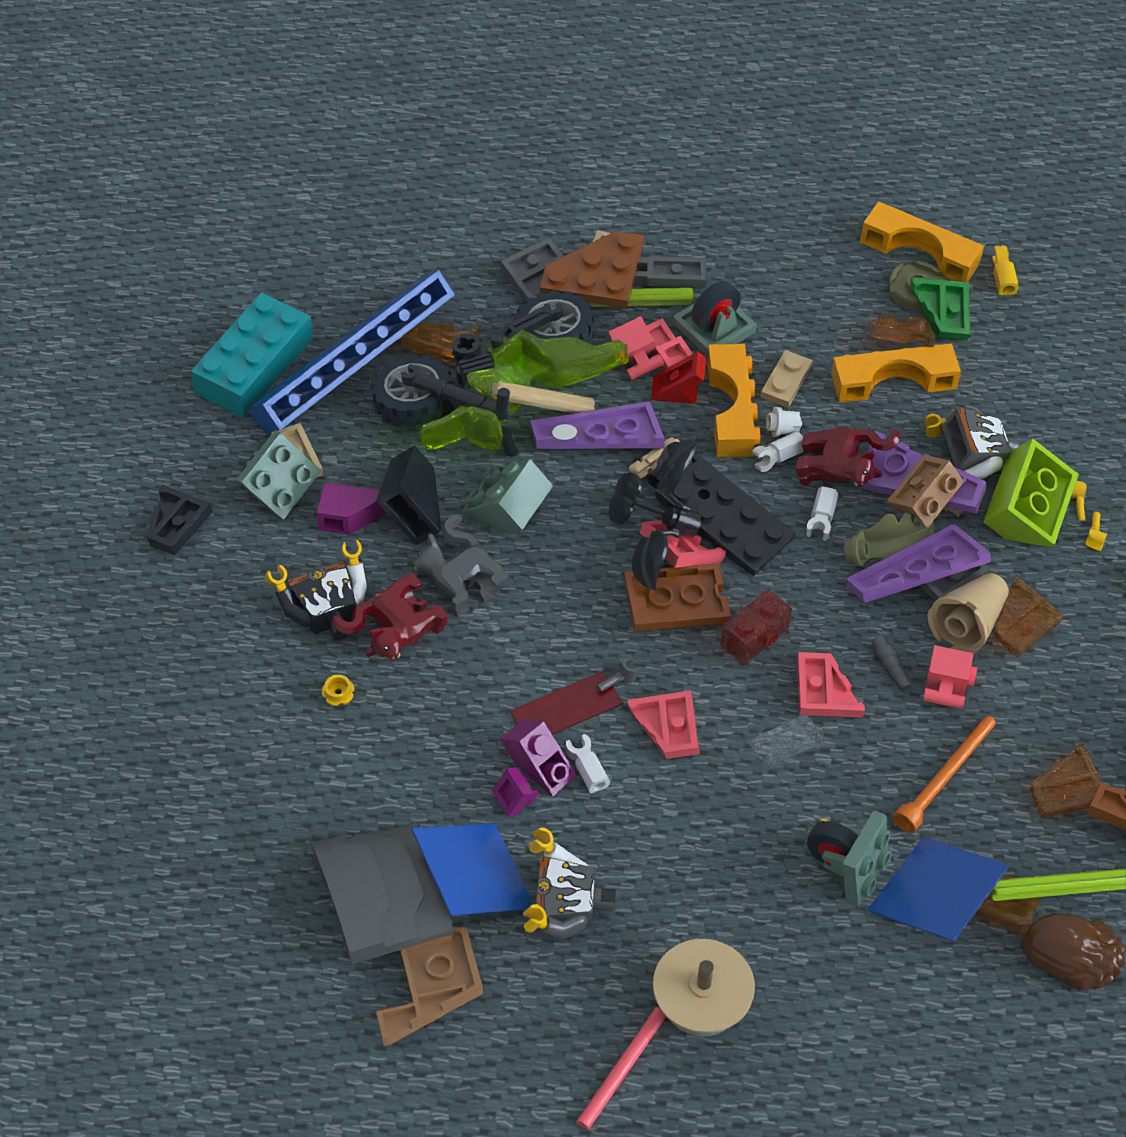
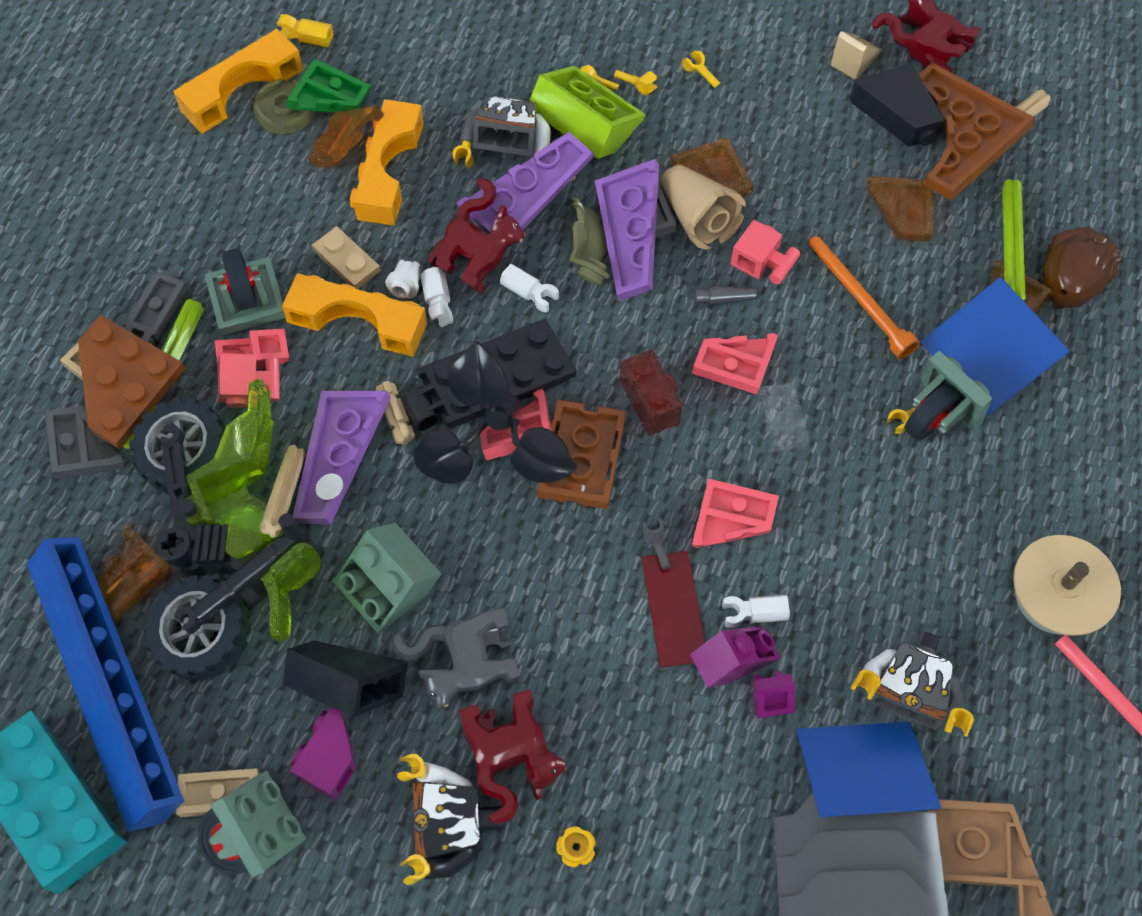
camera: 70 degrees left, 10 degrees up
(680, 381) = (308, 352): red slope -> none
(926, 489) = (556, 183): medium nougat bracket -> none

